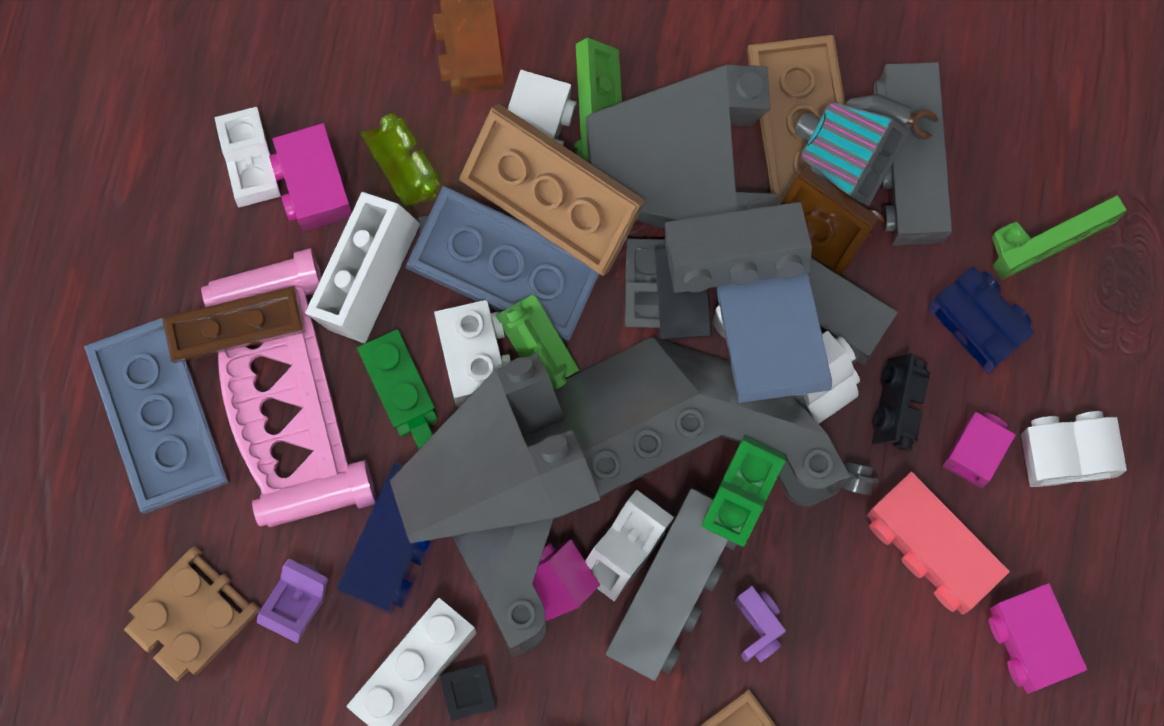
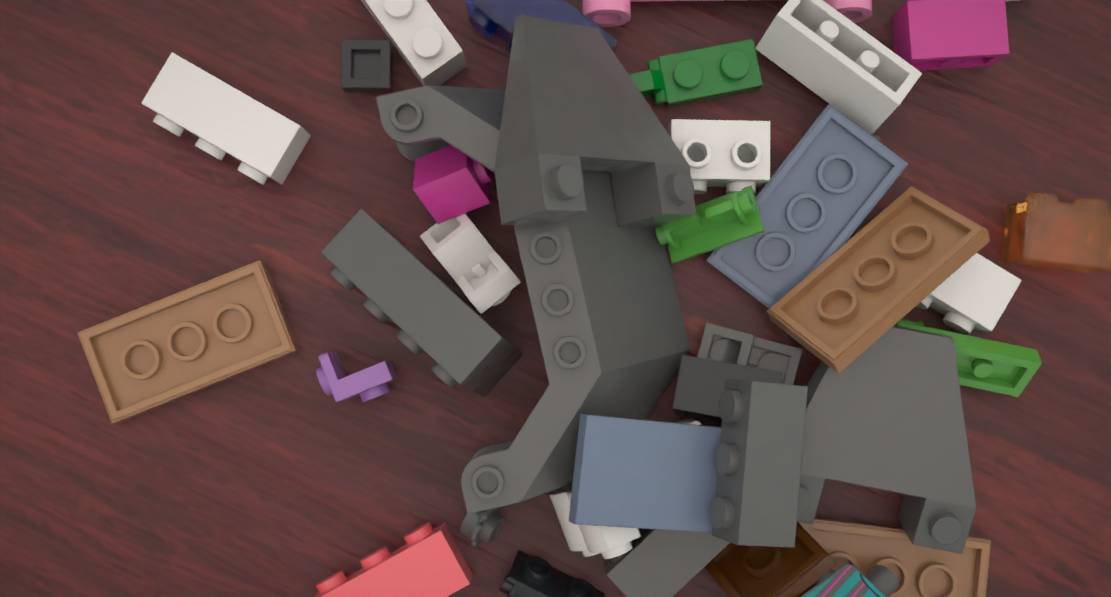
camera: 95 degrees right, 10 degrees up
(409, 175) = (938, 130): clear neon green hinge -> none
(744, 490) = (482, 393): green slope -> none

